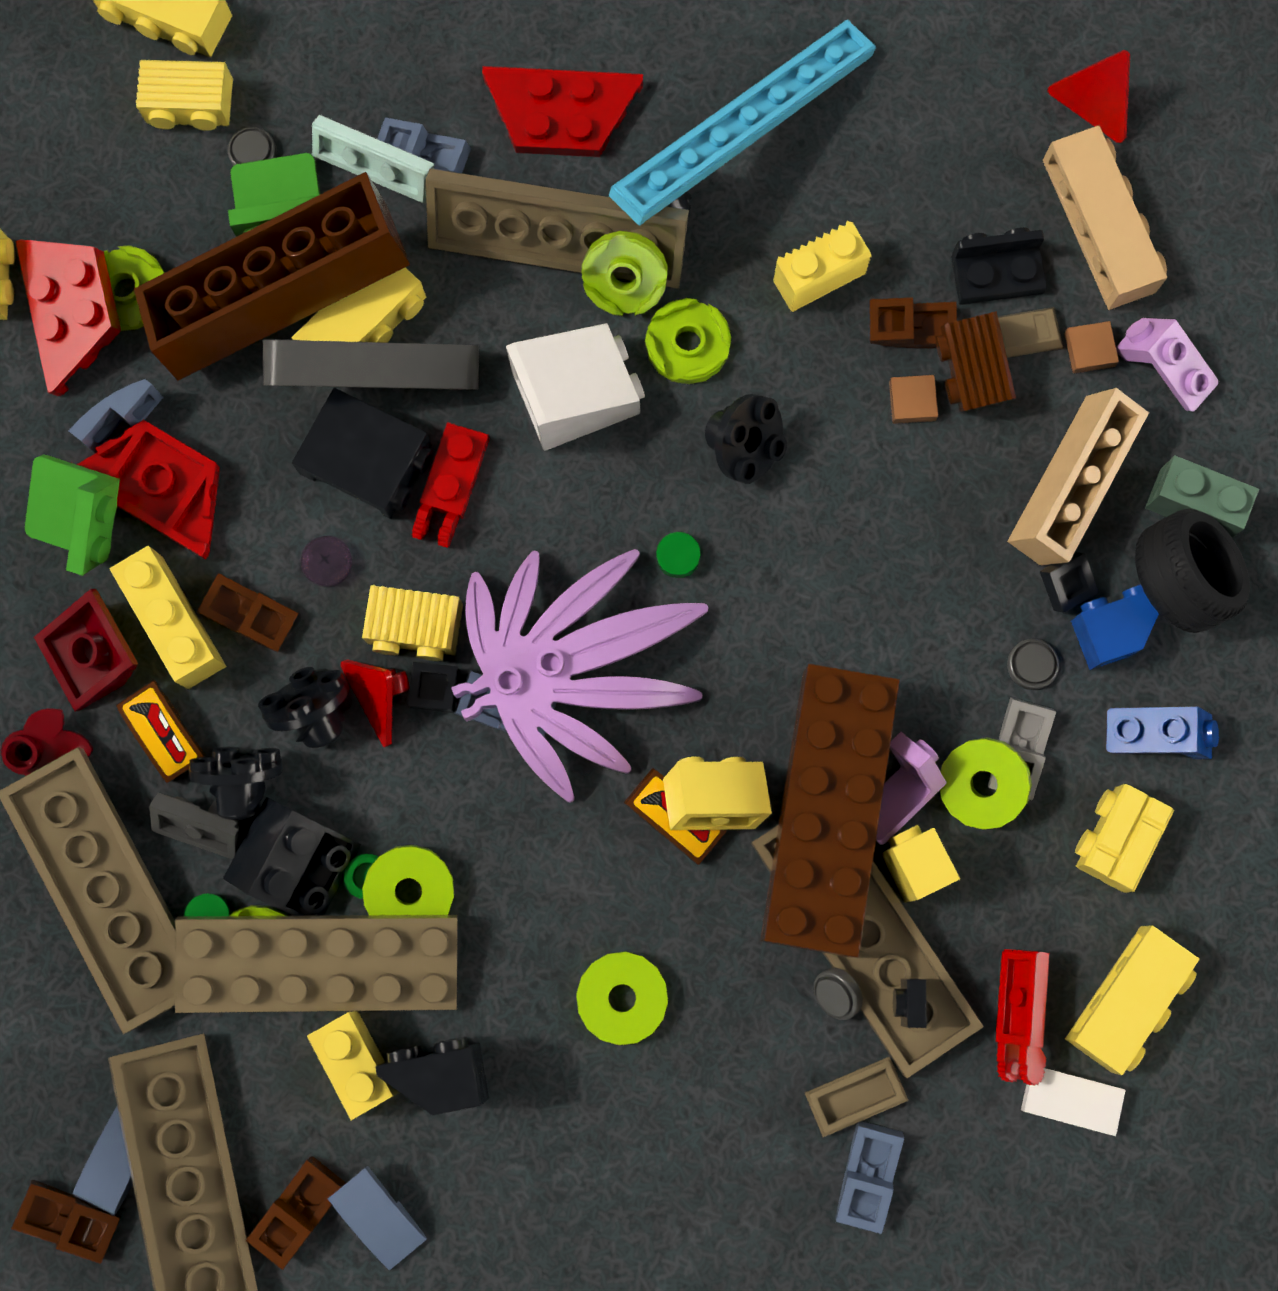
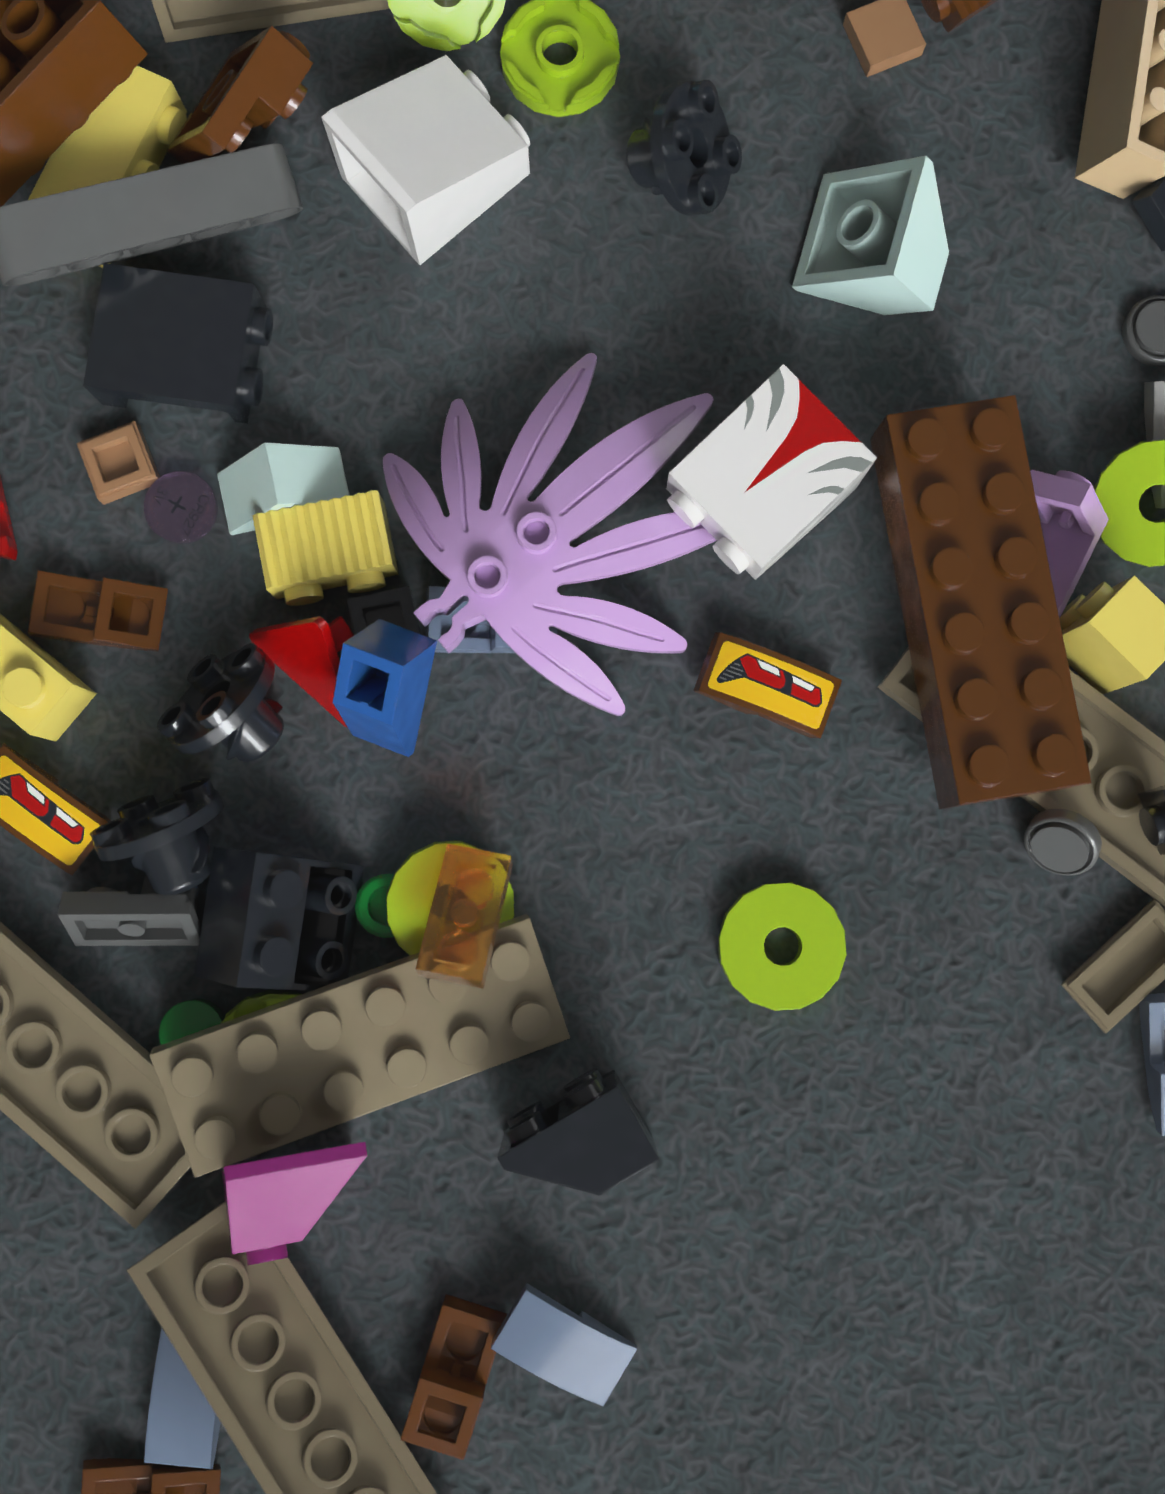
camera: 25 degrees left, 5 degrees up
(228, 1043) = (283, 1198): none -> slope
(296, 517) = (118, 462): none -> medium nougat tile
(350, 1063) = (458, 1160): light yellow brick -> none
(398, 567) = (279, 478): none -> light aqua slope
(413, 900) = (464, 916): none -> clear orange plate
(416, 728) = (384, 685): none -> blue slope
(451, 480) = (309, 343): red hinge -> none
(469, 302) = (247, 92): none -> reddish brown plate
(678, 555) = (648, 341): green tile -> none
(716, 794) = (817, 635): light yellow brick -> none
(717, 676) = (768, 474): none -> white slope
(854, 539) = (876, 239): none -> light aqua slope

